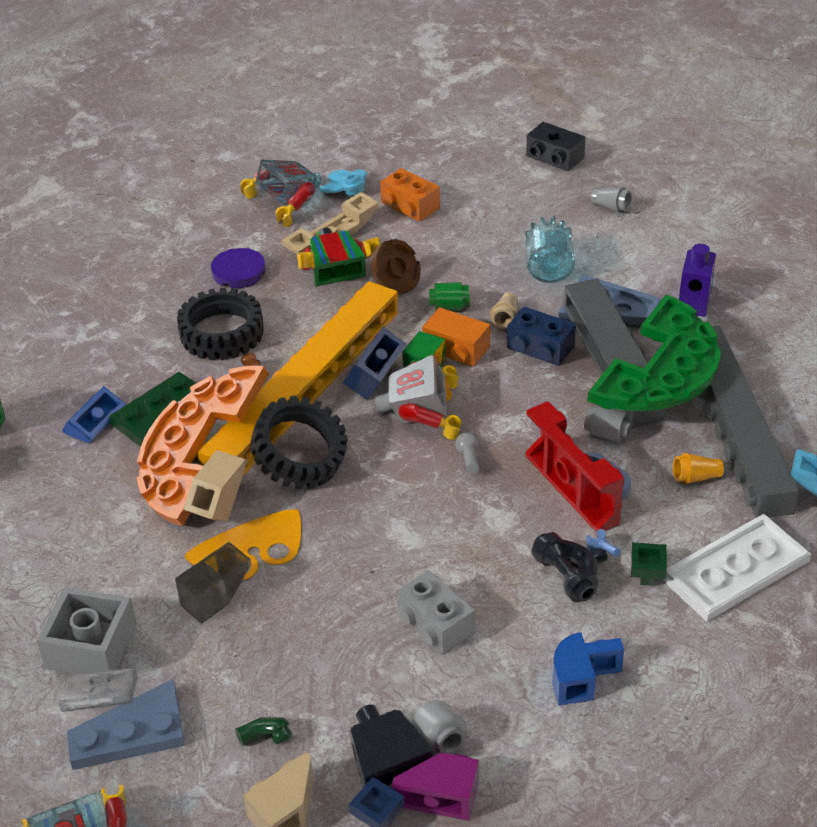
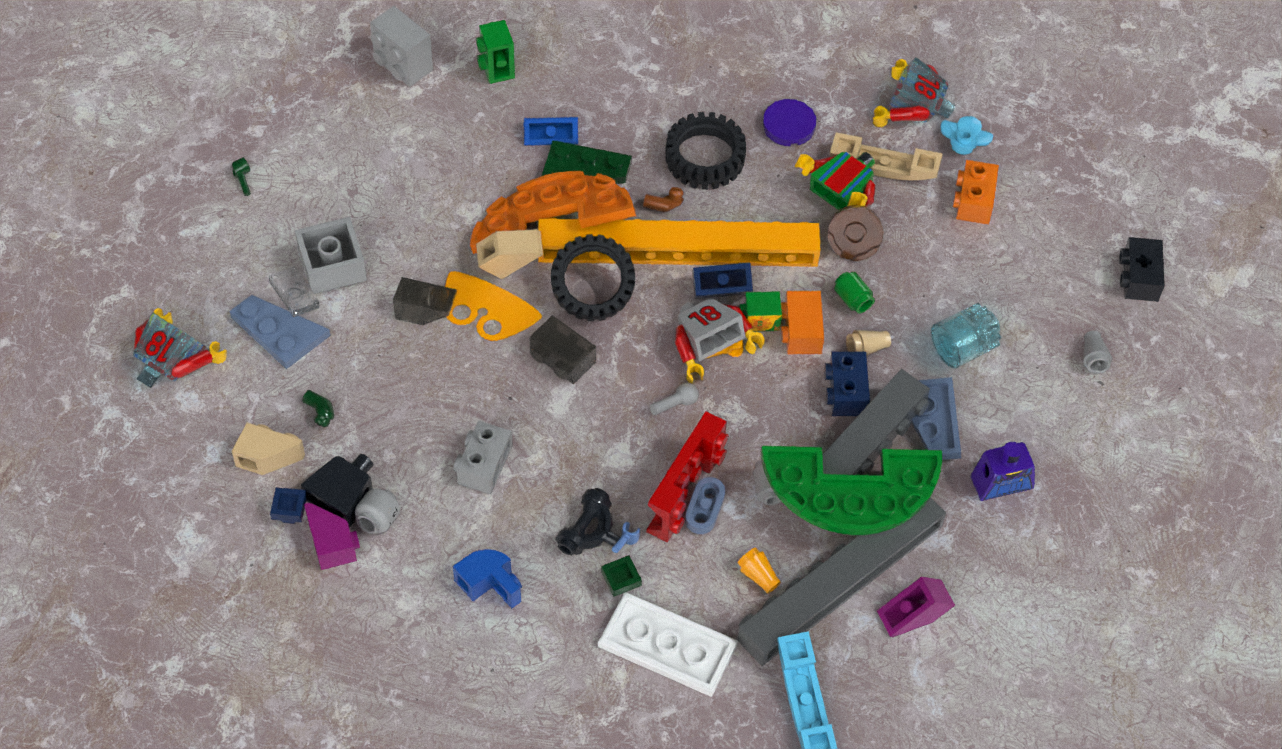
camera: 55 degrees right, 15 degrees up
(355, 502) = (562, 350): none -> clear smoke brick
(796, 386) = (916, 606): none -> magenta slope

